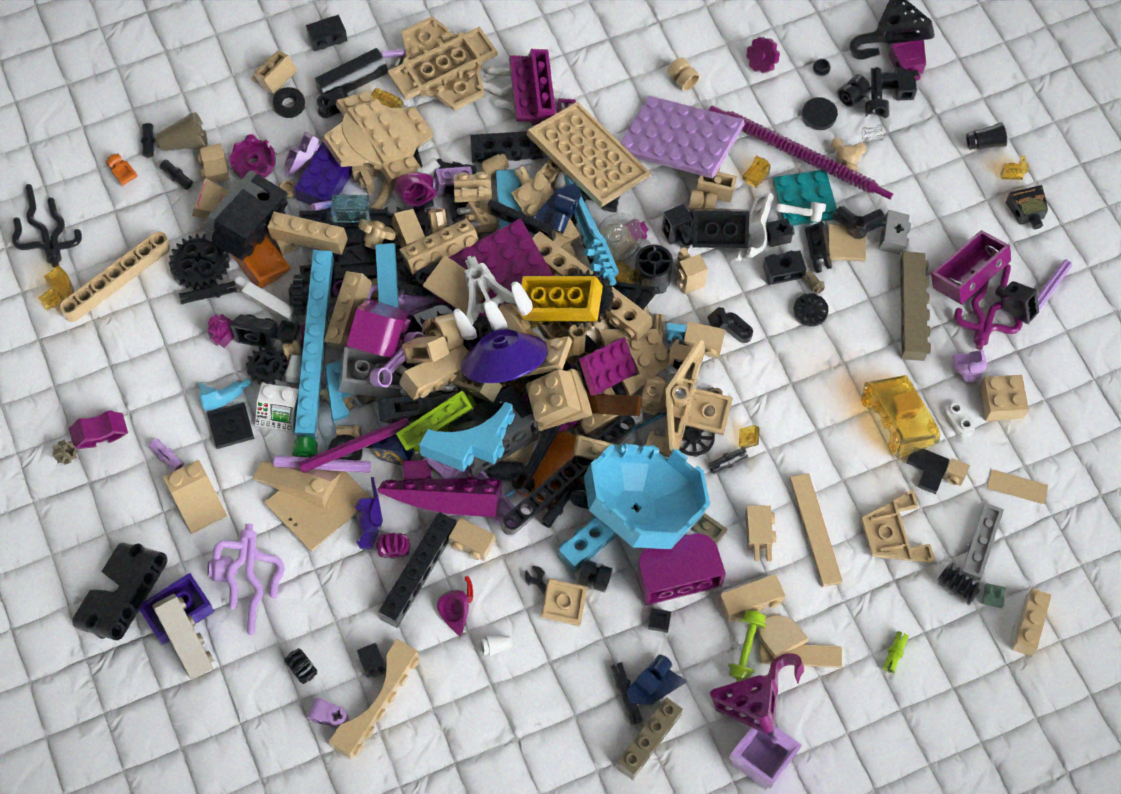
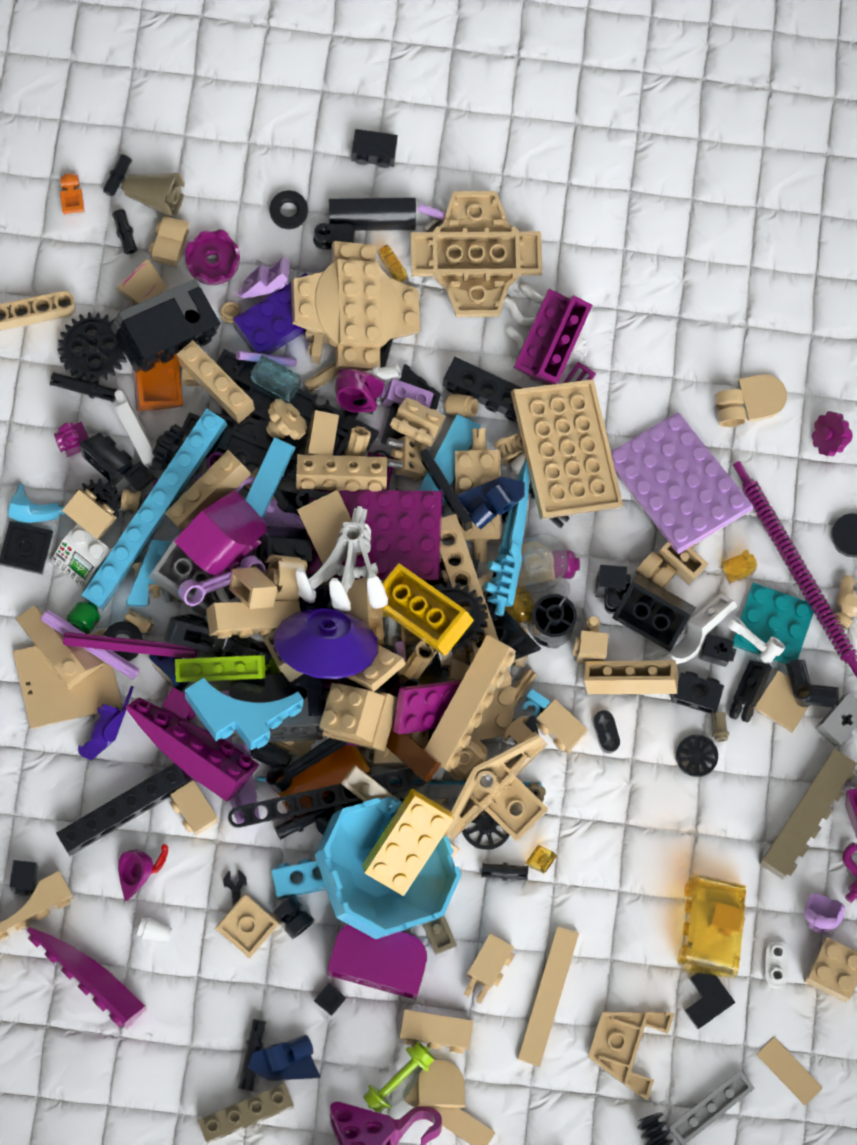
camera: 25 degrees right, 10 degrees up
(267, 370) = (89, 513): none -> tan brick
(274, 72) = (291, 167): tan brick -> none
(294, 369) = (121, 523): white cone -> none
(393, 545) = (111, 771): magenta gear -> none
(469, 705) = (92, 979): none -> magenta wedge
(633, 344) = (470, 701): none -> tan brick
(650, 467) = (407, 842): none -> yellow brick
(701, 56) = (762, 396): none -> tan tile
(718, 318) = (590, 712): black plate -> none
(733, 278) = (631, 677): none -> tan brick
(956, 472) = (731, 1020): tan plate -> none

